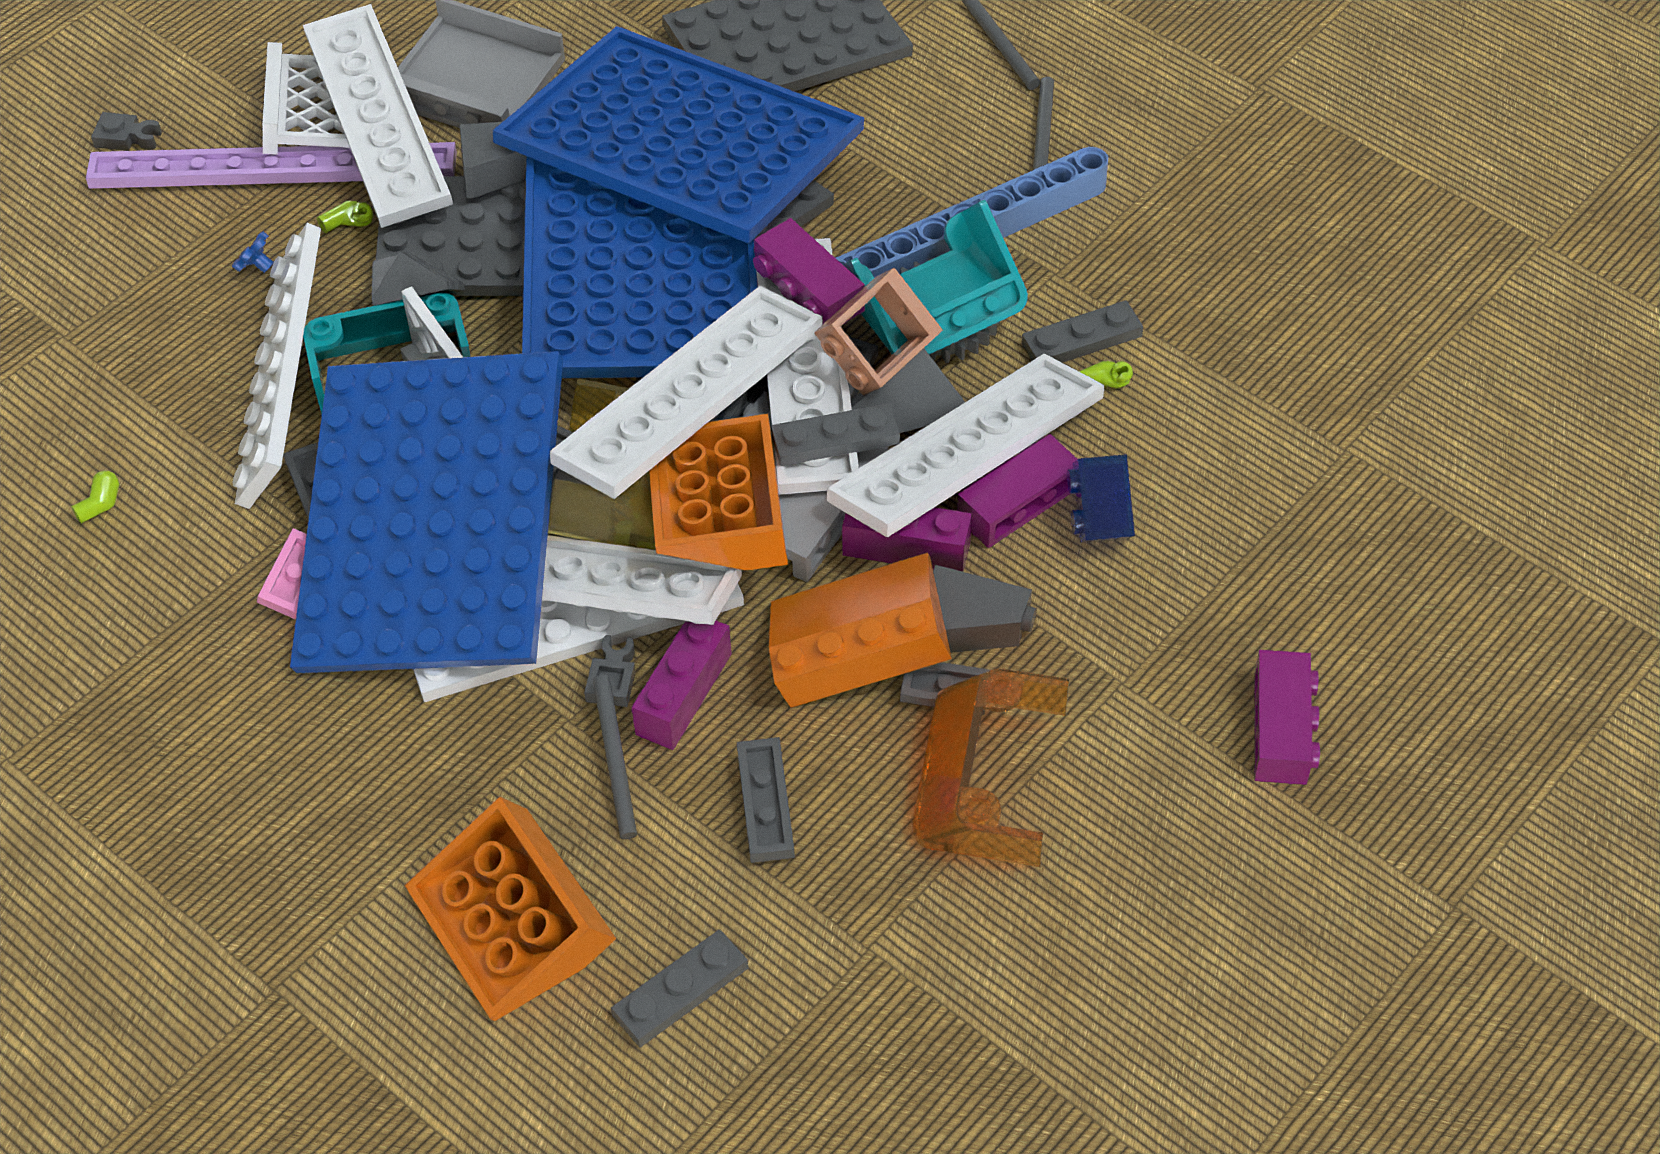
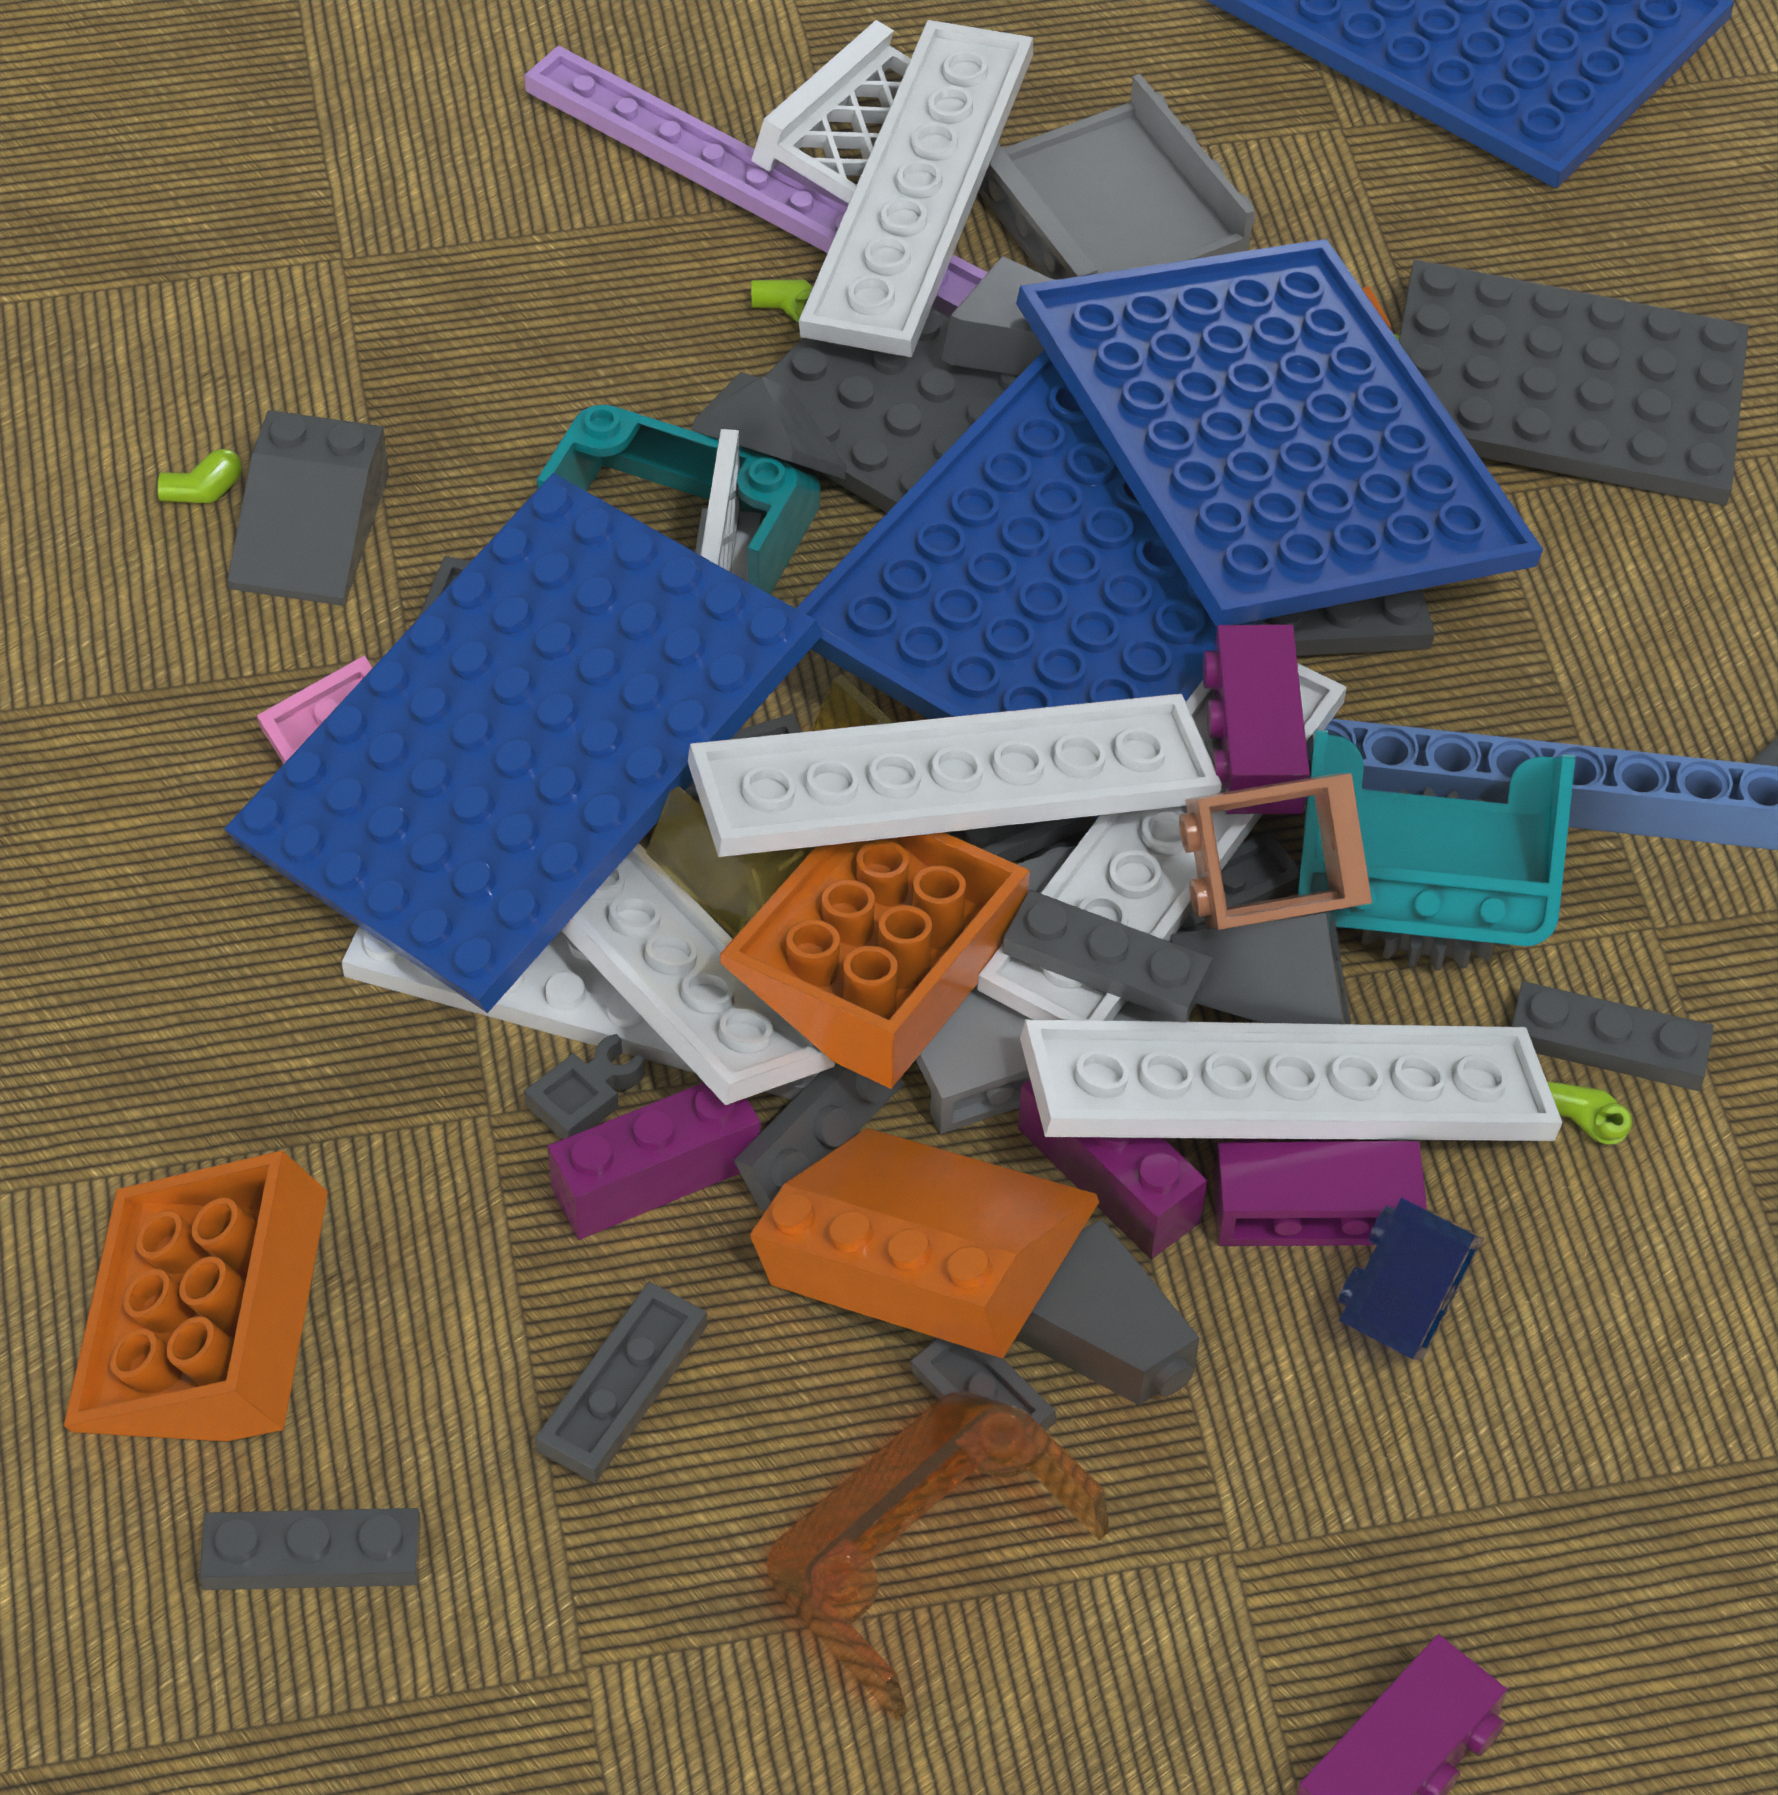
camera: 35 degrees right, 0 degrees up
(123, 130) = (625, 38): dark grey plate -> none
(178, 474) = (308, 507): none -> dark grey slope
(254, 255) = (634, 285): blue plant -> none
(278, 366) = (525, 436): white plate -> none
(615, 757) = (488, 1198): dark grey bar -> none
(749, 620) = (809, 1128): none -> dark grey plate

